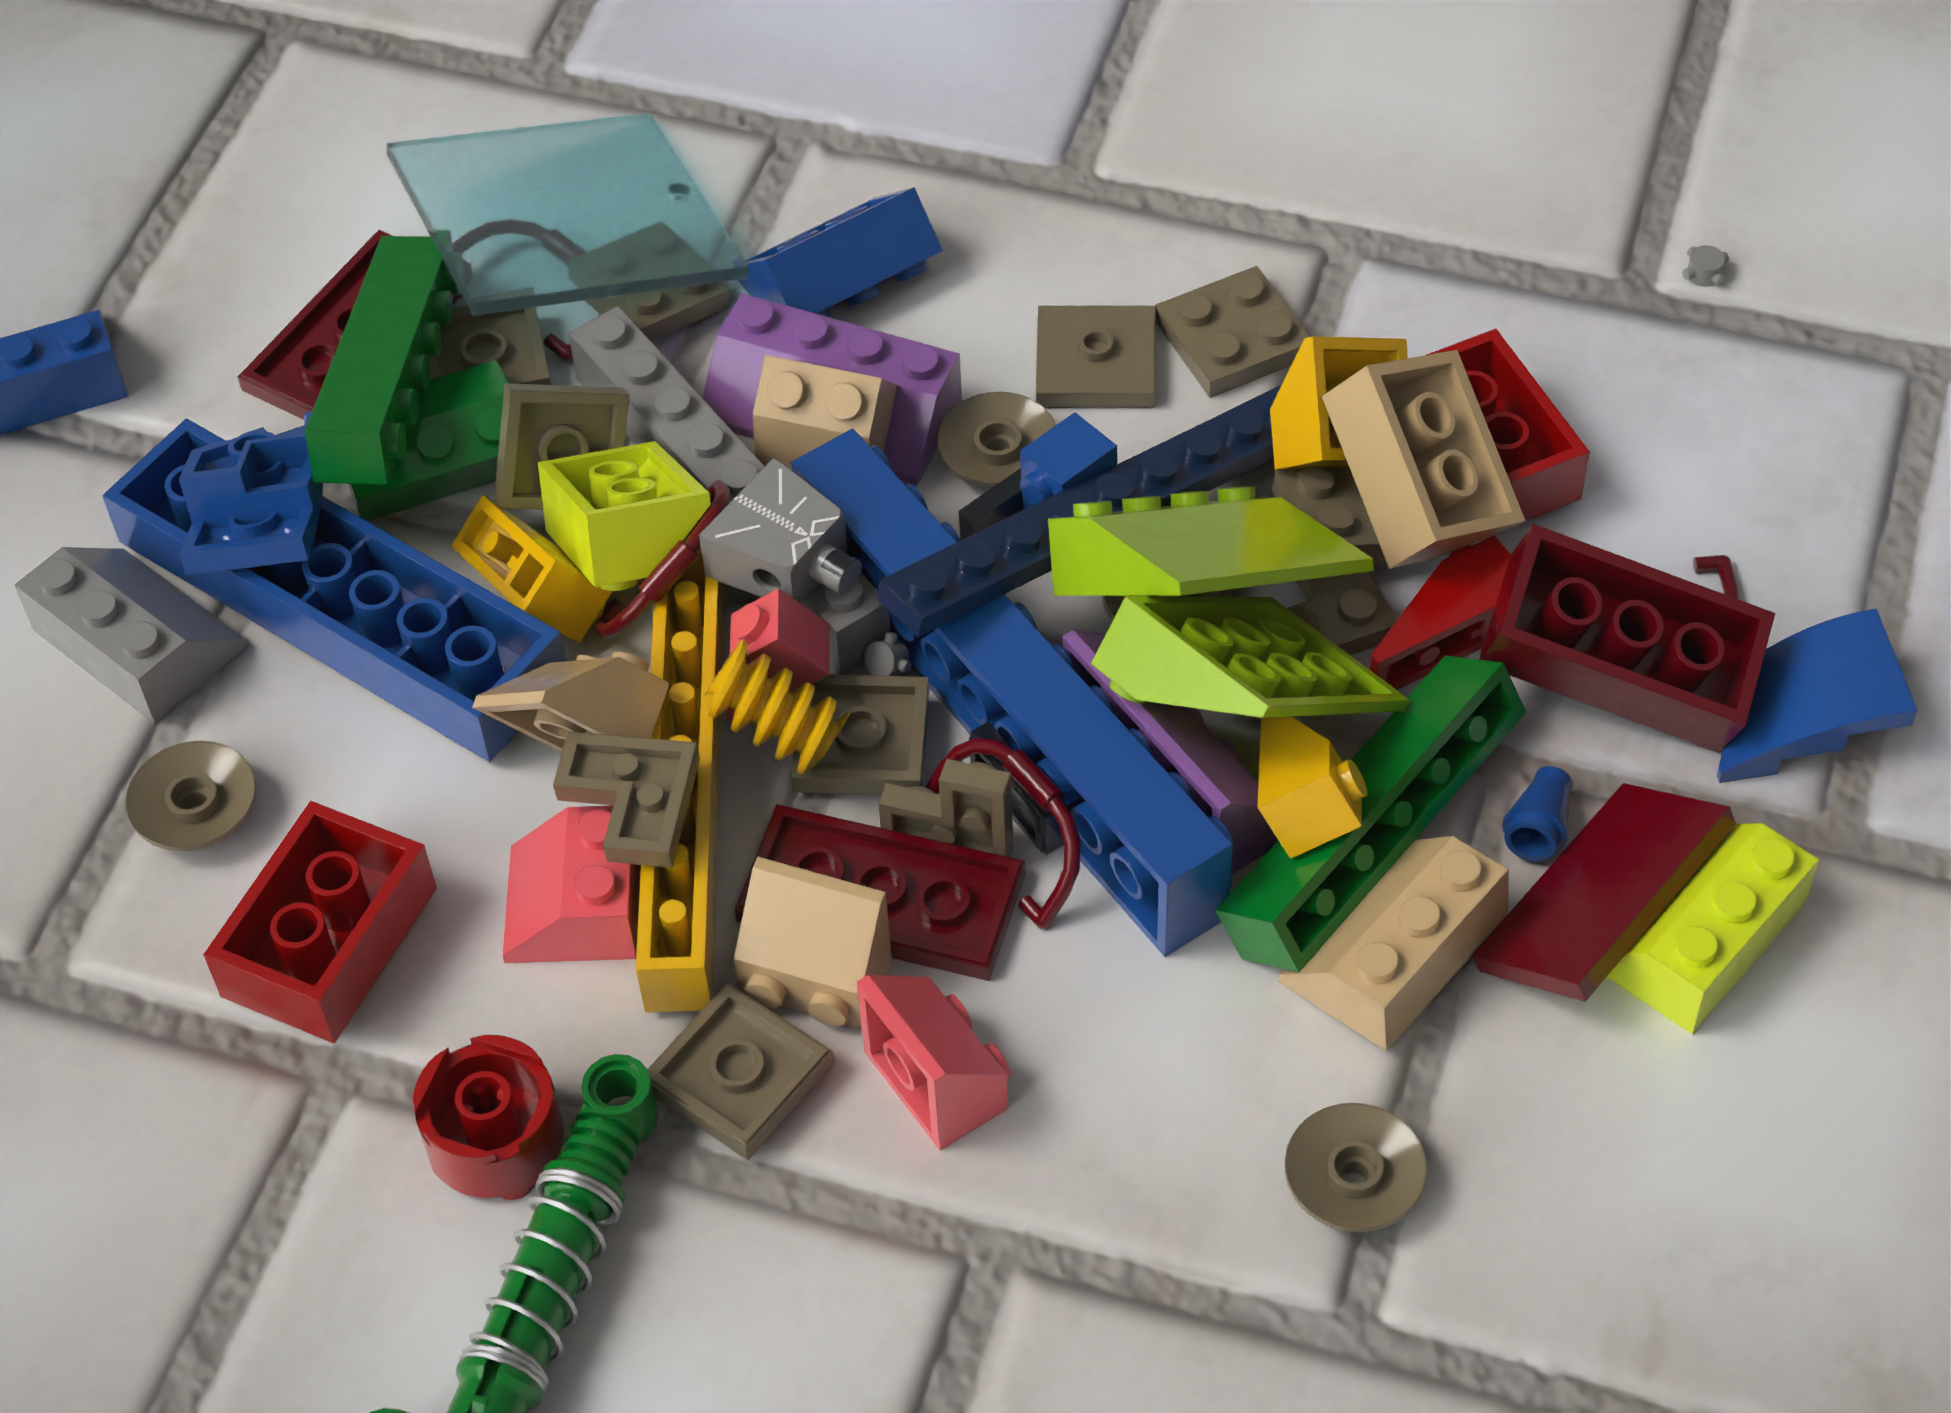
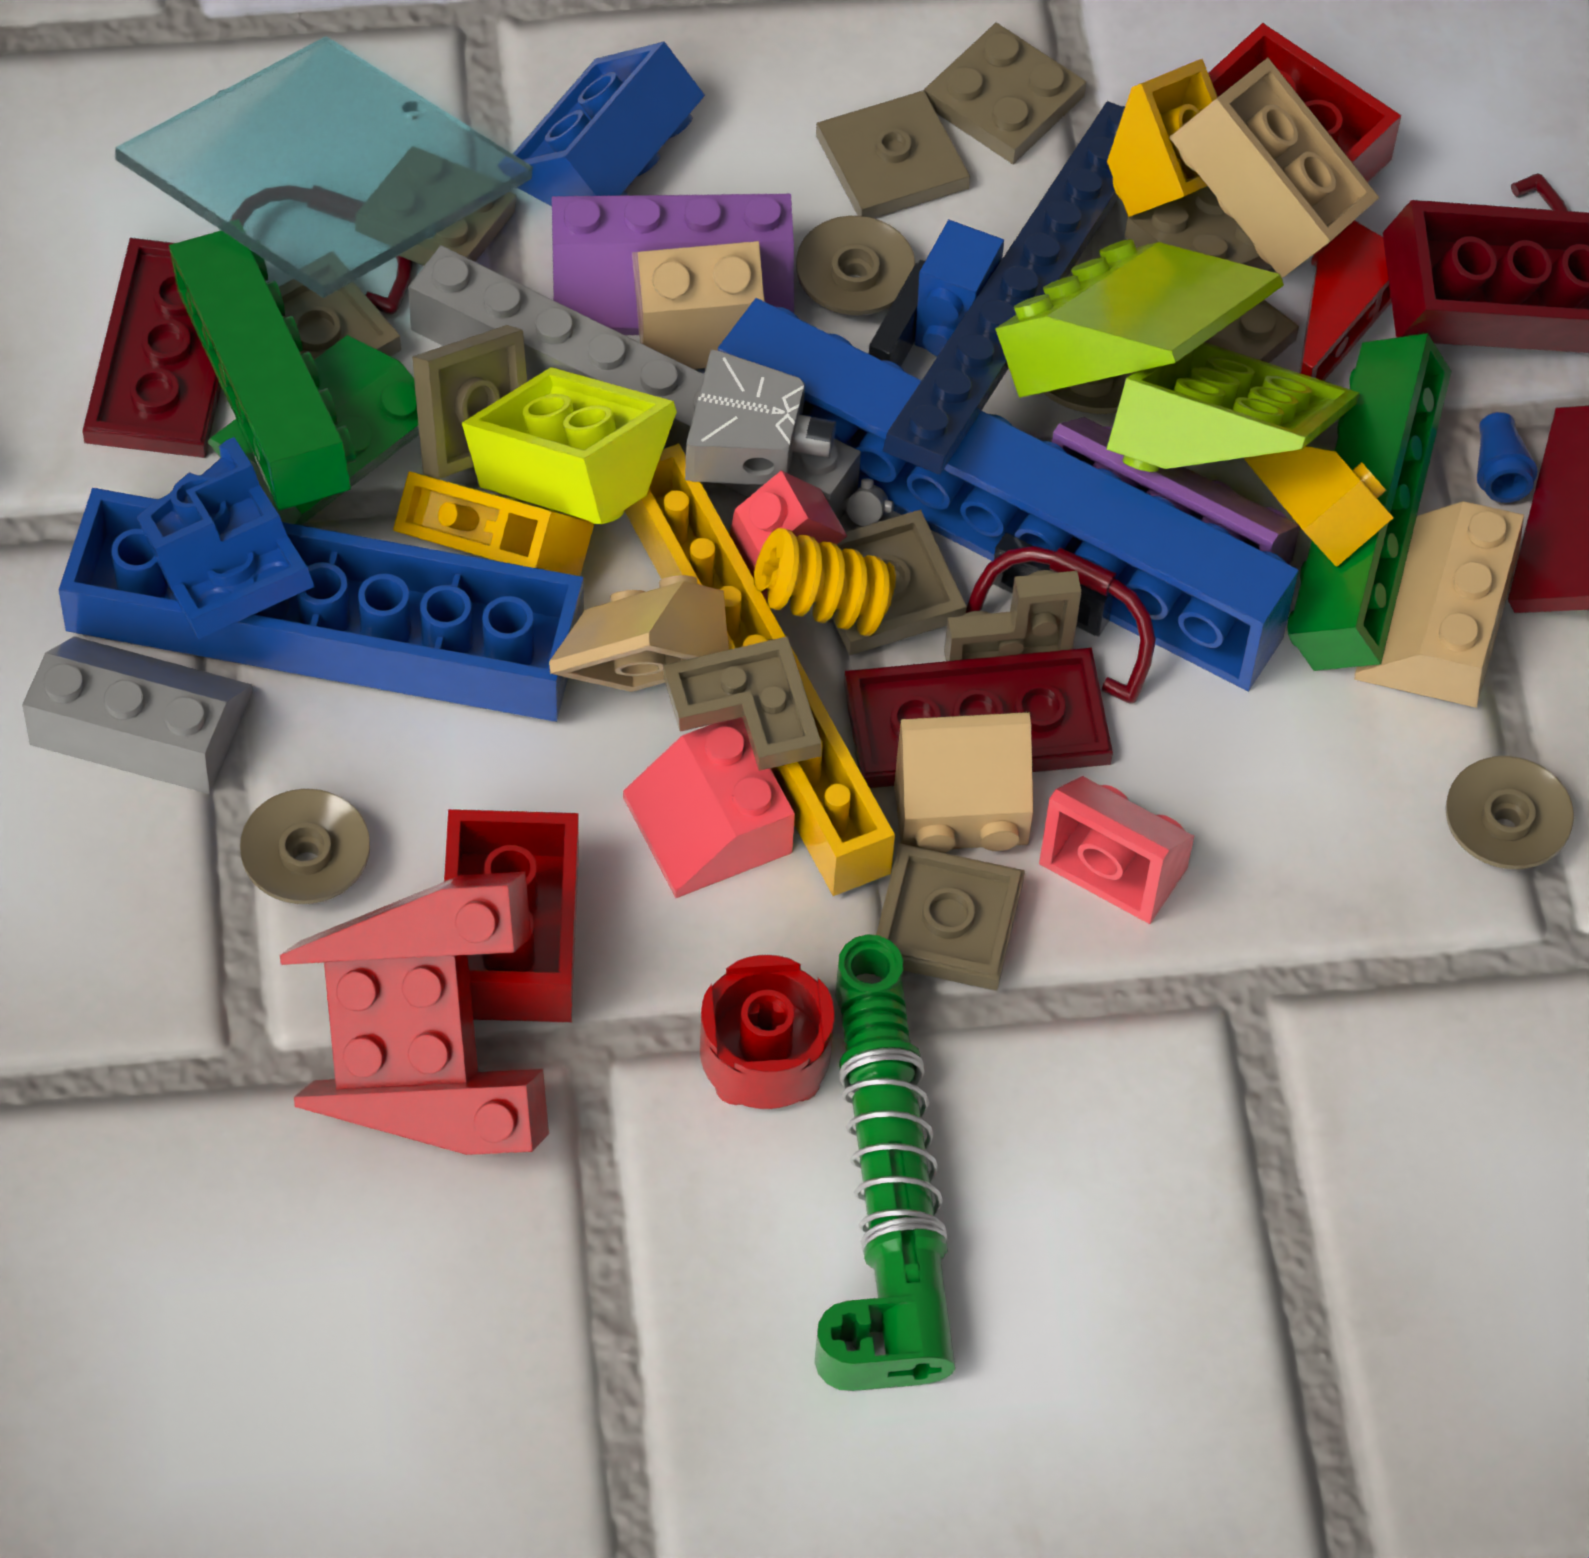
camera: 30 degrees left, 5 degrees up
(157, 988) = (408, 1020): none -> wedge
(666, 573) = (657, 492): dark red piece -> none

